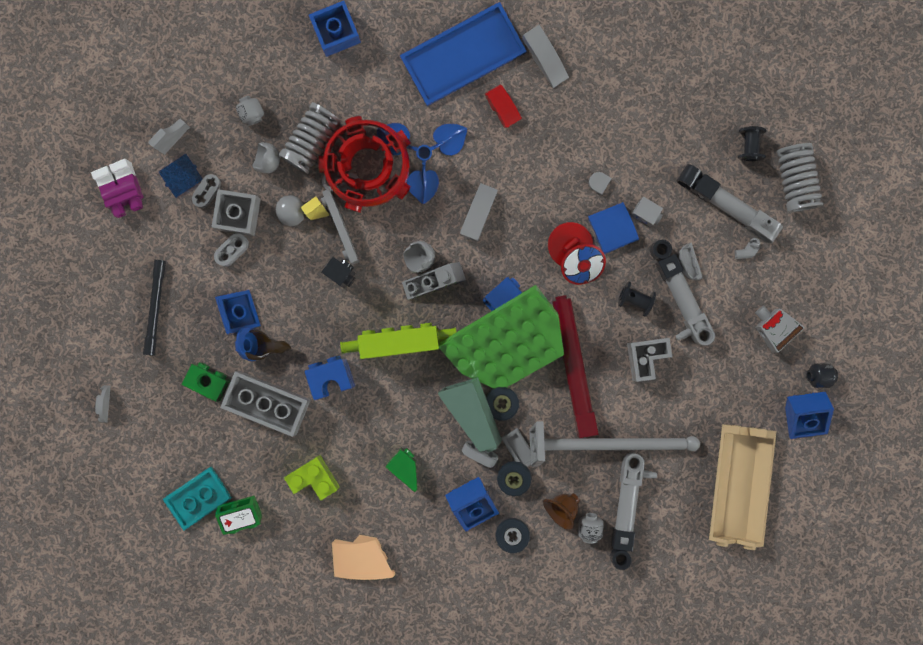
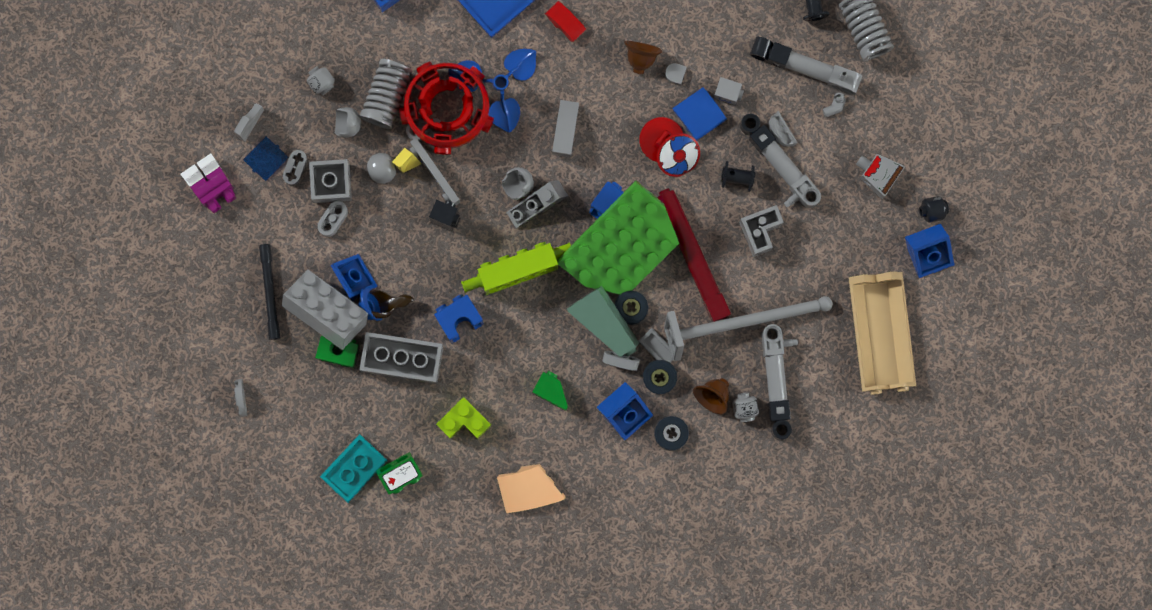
camera: 20 degrees left, 5 degrees down
(200, 339) = (324, 309): none -> light grey brick
(569, 157) = (641, 55): none -> reddish brown hat

